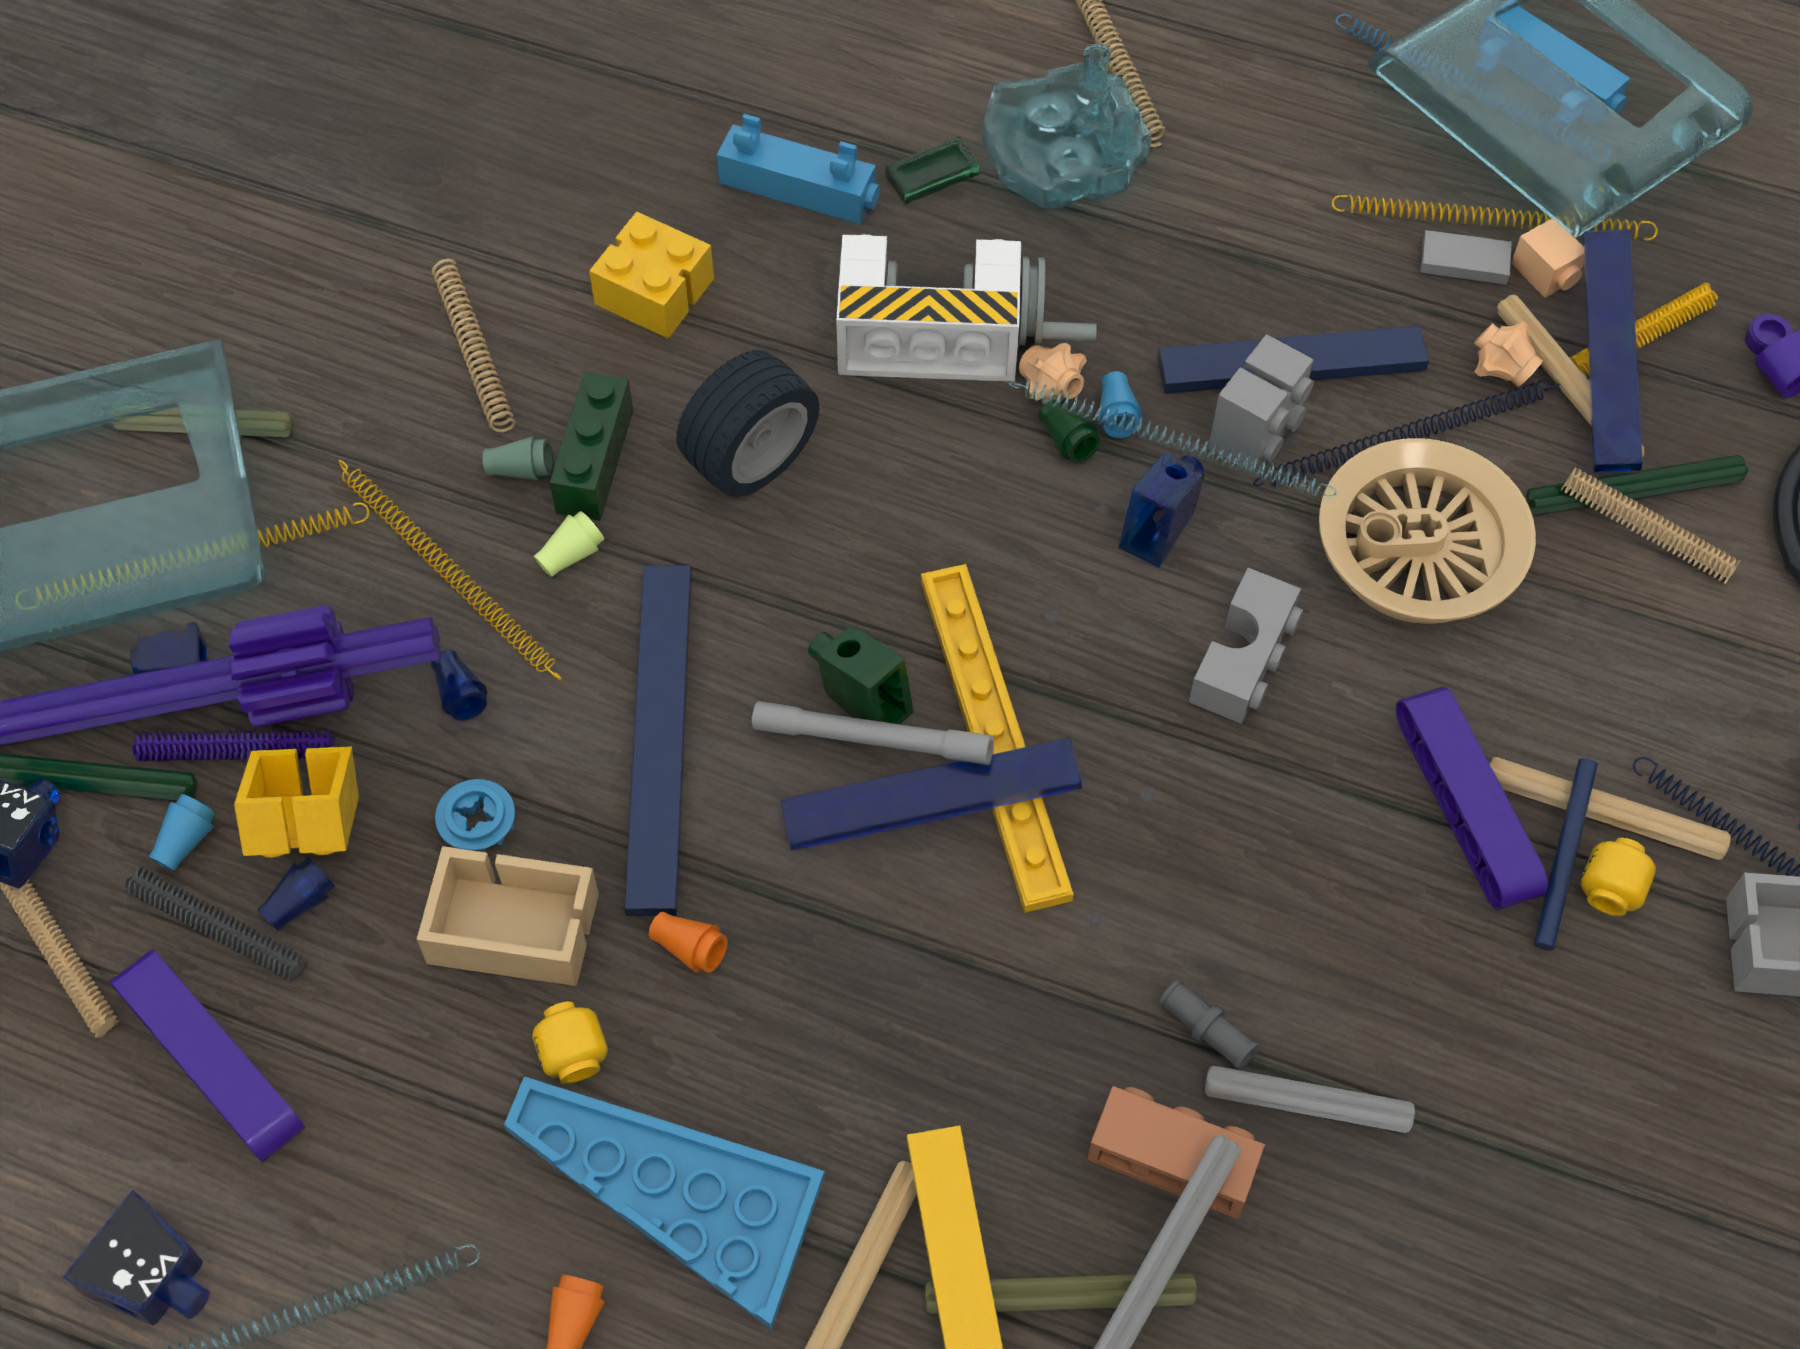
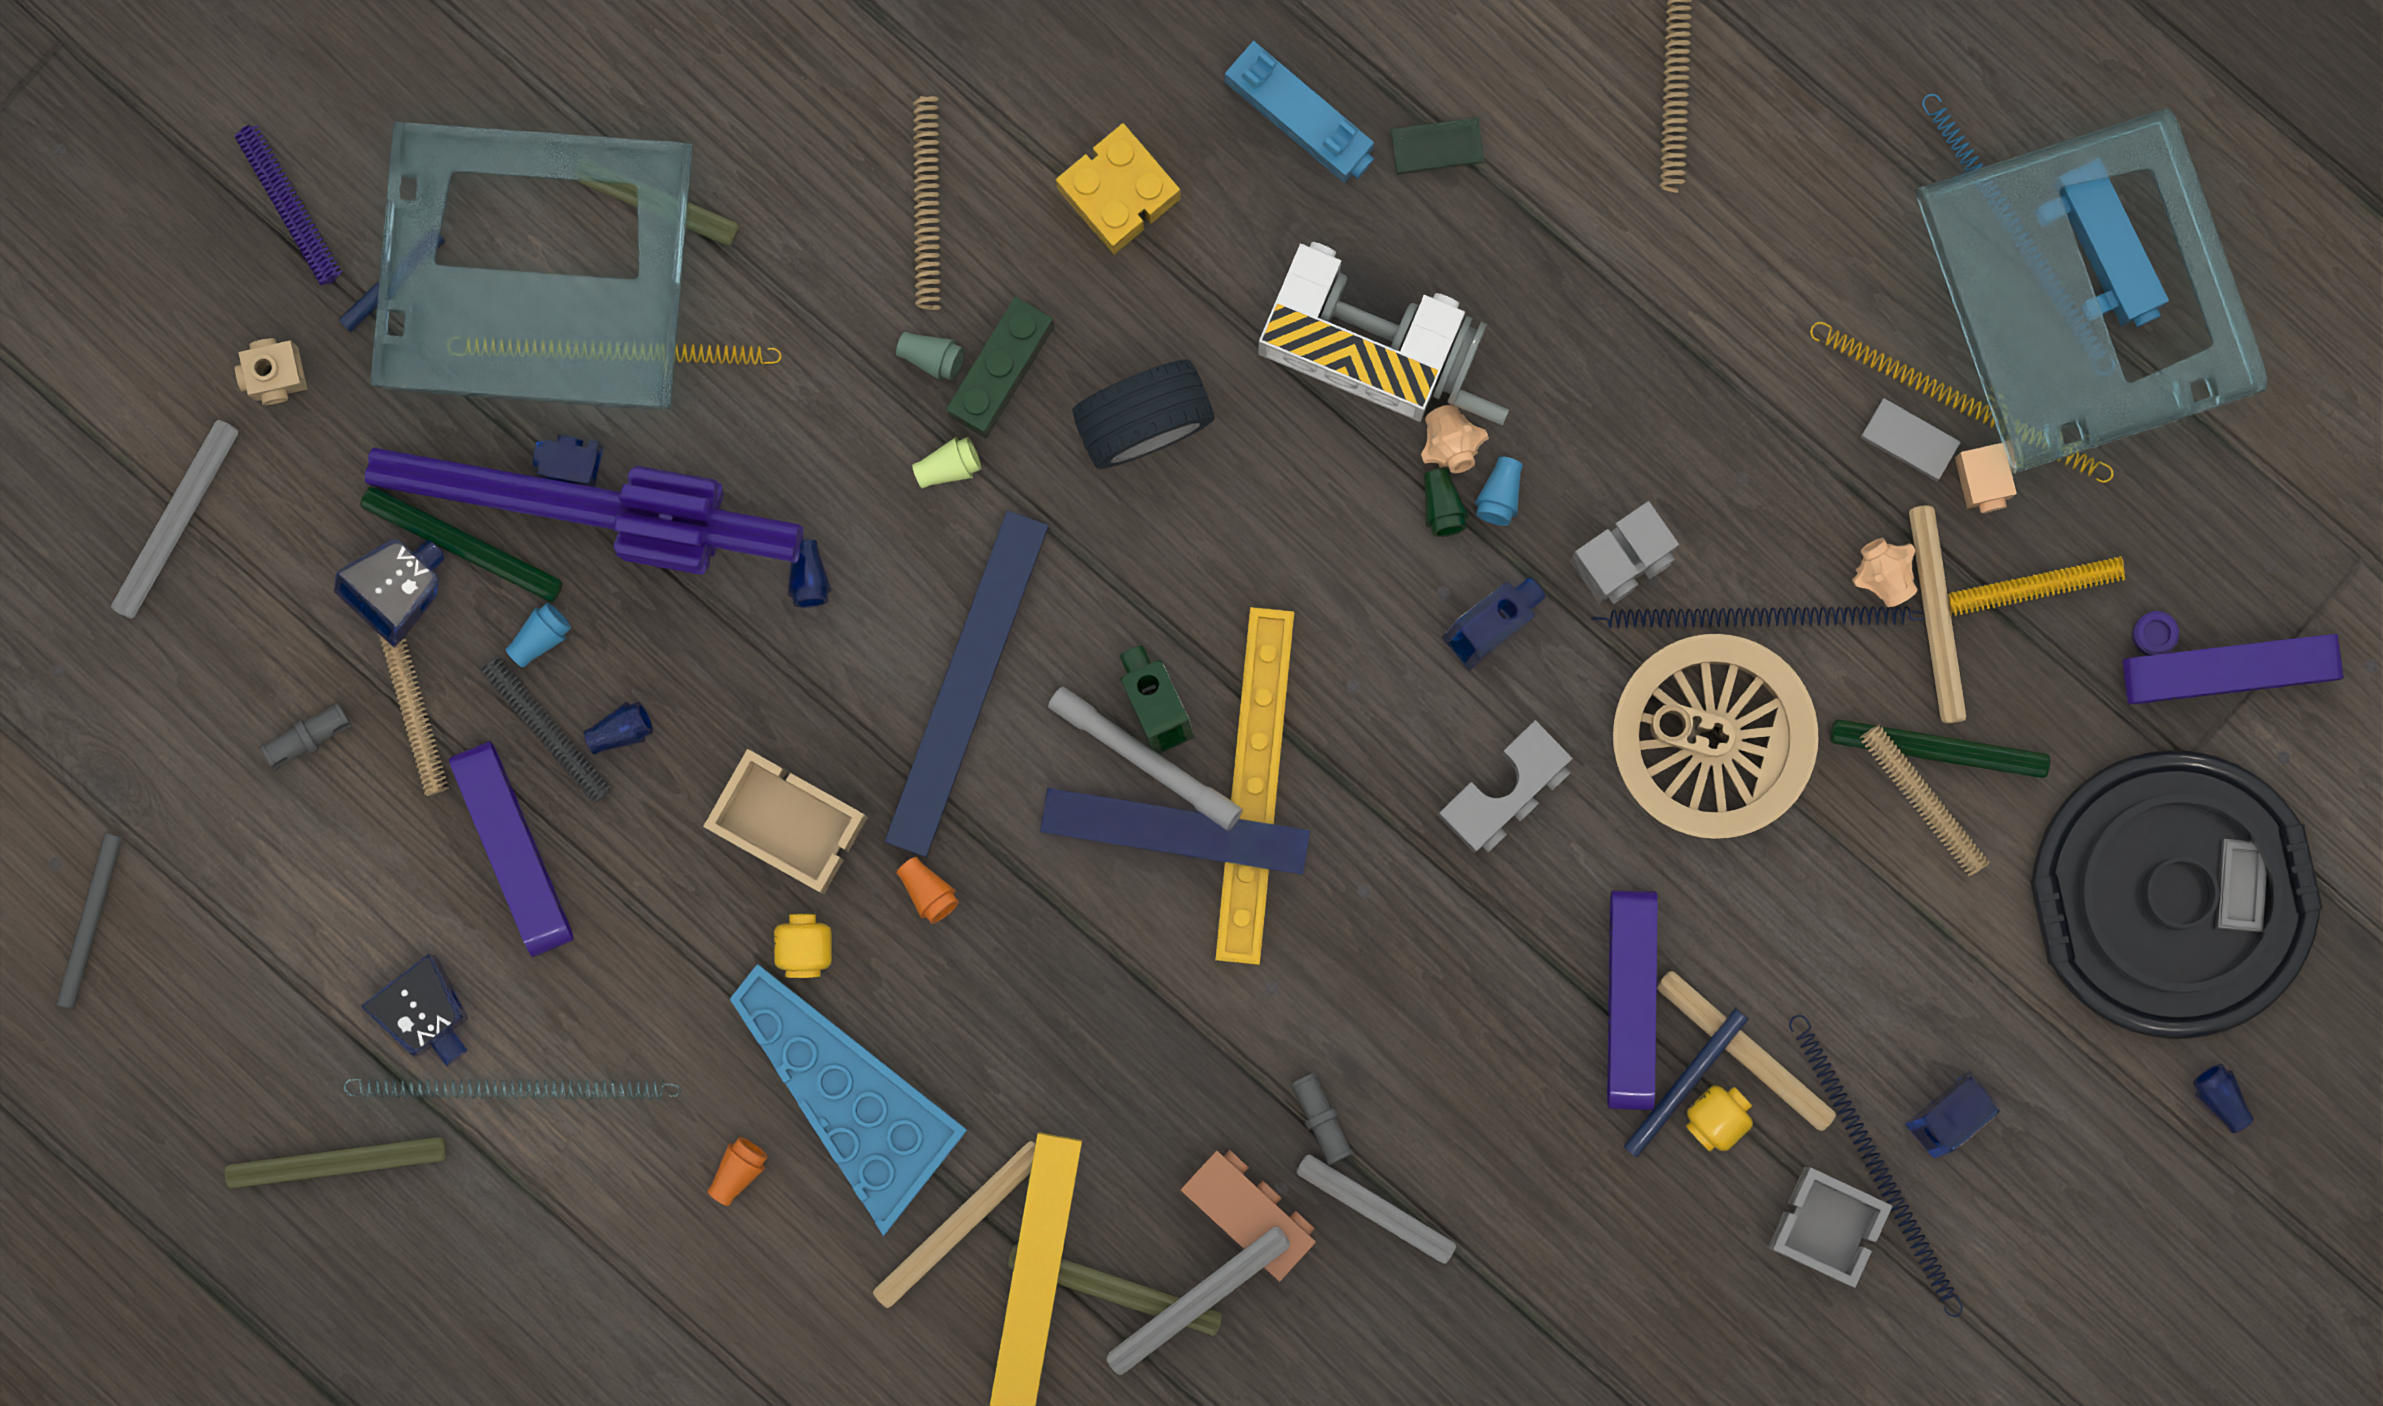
camera: 25 degrees right, 25 degrees up
(223, 747) = (601, 563): dark purple axle -> none
(279, 817) = (637, 666): yellow piece -> none
(449, 568) = (834, 450): yellow piece -> none
(467, 799) = (786, 686): dark azure gear -> none
(1087, 122) = (1543, 160): clear light blue brick -> none
(1178, 441) = (1529, 555): clear light blue piece -> none
(1333, 355) = (1689, 496): dark blue tile -> none
(1612, 351) = (1981, 610): clear blue tile -> none

